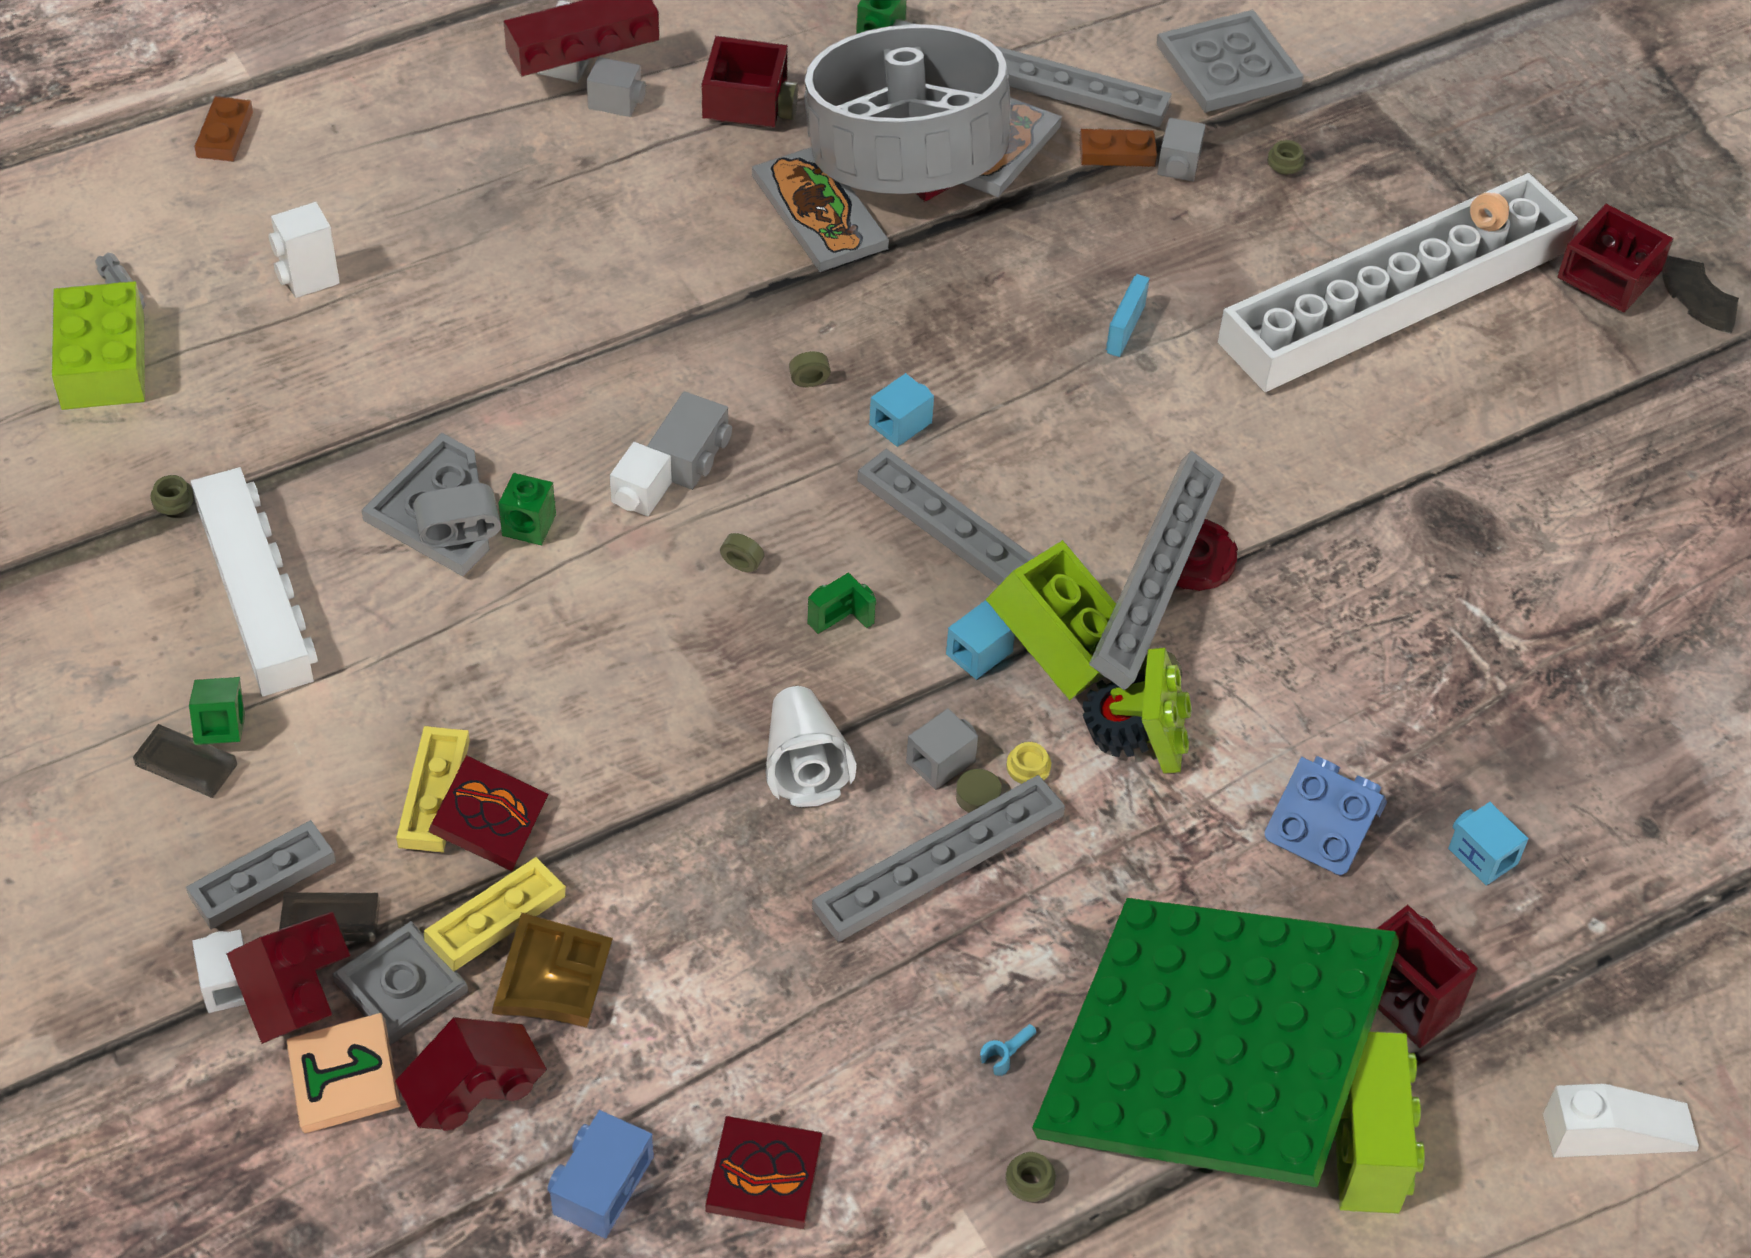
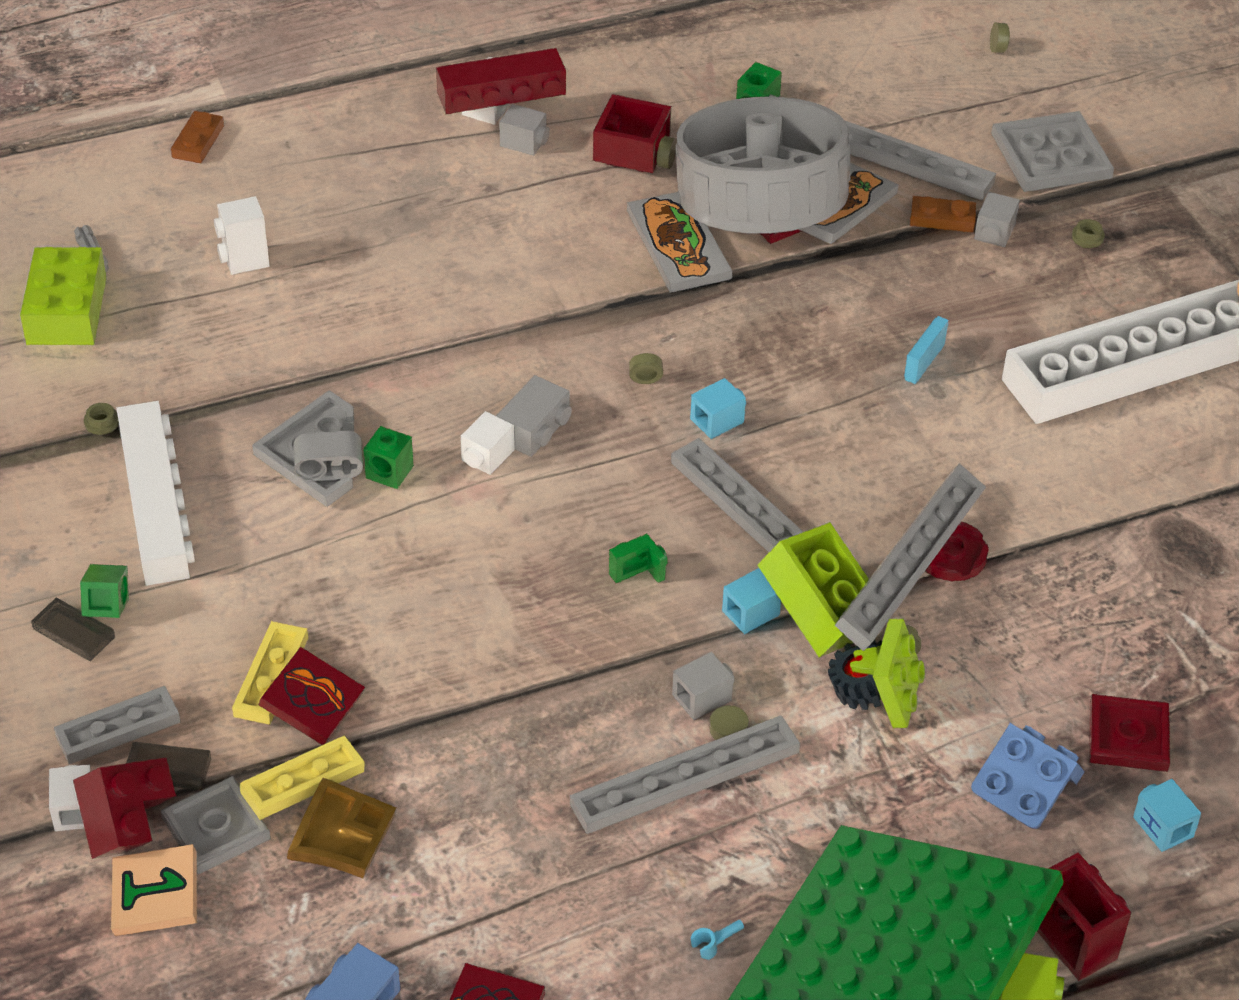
camera: 10 degrees right, 5 degrees down
(465, 1065) = (253, 893): dark red brick -> none
(742, 552) = (562, 510): olive tile -> none
(806, 751) = (585, 675): white cone -> none
(1027, 762) = (776, 703): light yellow plate -> none
(1429, 749) = (1129, 733): none -> dark red tile

